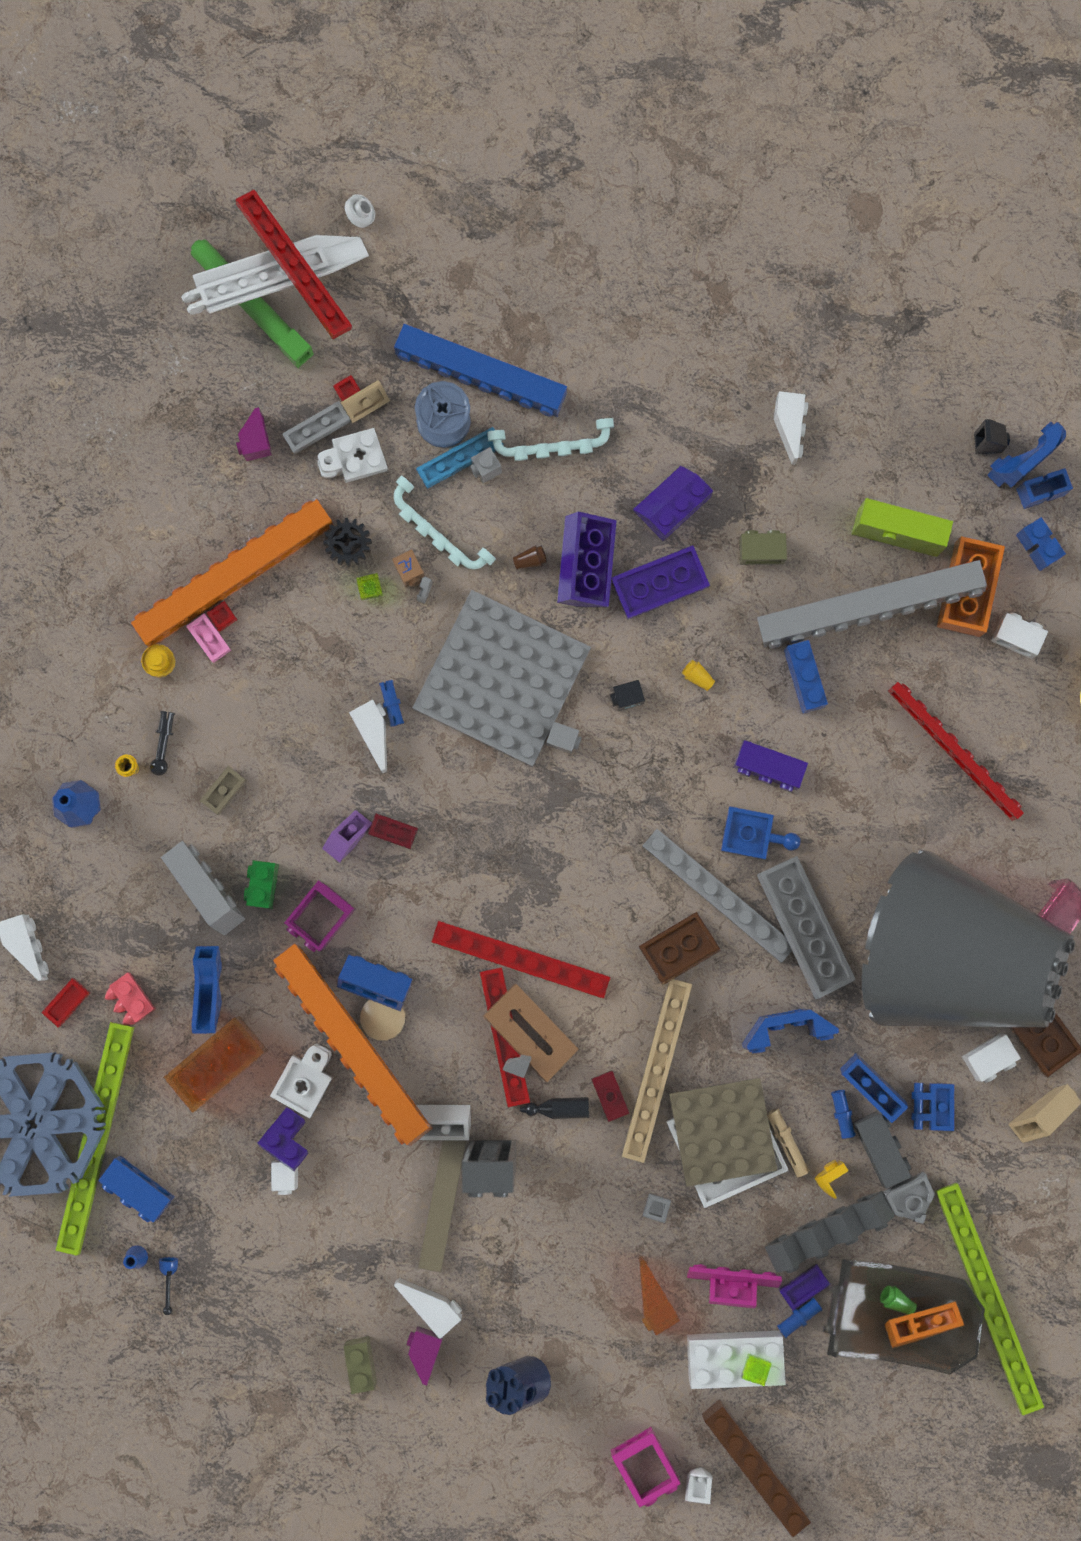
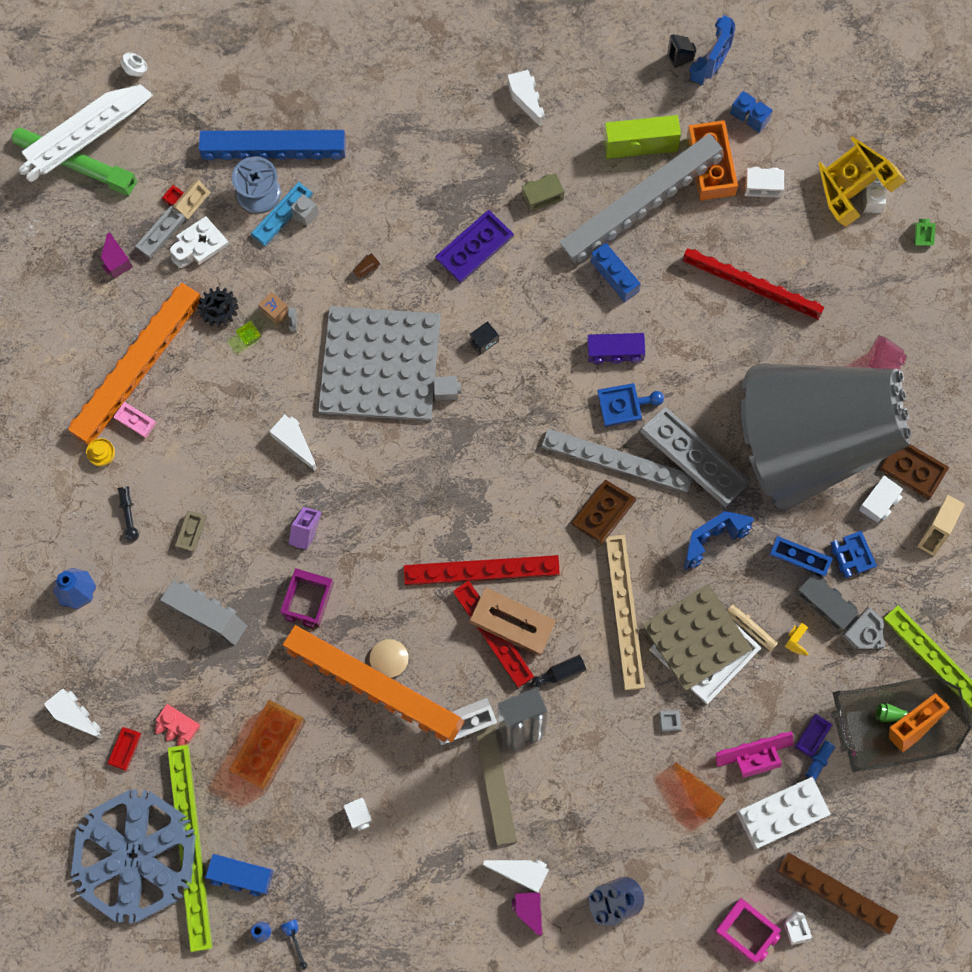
camera: 20 degrees left, 10 degrees down
(122, 764) = (106, 539): yellow cone -> none
(207, 992) = (237, 688): blue arch -> none
(221, 616) = (139, 400): red tile -> none
(262, 884) = (251, 591): green brick -> none
(279, 1141) = (343, 785): dark purple plate -> none
(293, 264) = (97, 116): red plate -> none
(308, 1070) = (345, 722): white plate -> none
(360, 1365) = (481, 942): olive piece -> none
(374, 982) = (371, 631): blue brick -> none
(391, 703) = (300, 414): blue pin -> none
(393, 831) = (340, 510): dark red plate -> none
(426, 528) = (290, 279): light aqua bar -> none
(517, 1065) = (512, 649): light grey tile -> none
(542, 450) = (344, 183): light aqua bar -> none
(586, 560) = (411, 250): dark purple slope -> none
(610, 1096) = (596, 647): dark red plate -> none
(673, 502) = (461, 184): dark purple slope -> none
(698, 675) = (532, 303): yellow cone -> none
(756, 1369) = (802, 809): clear neon green plate -> none
(819, 1236) = (814, 681): dark grey brick -> none
(843, 1114) = (785, 588): blue pin -> none
(1051, 487) = (741, 67): blue piece -> none

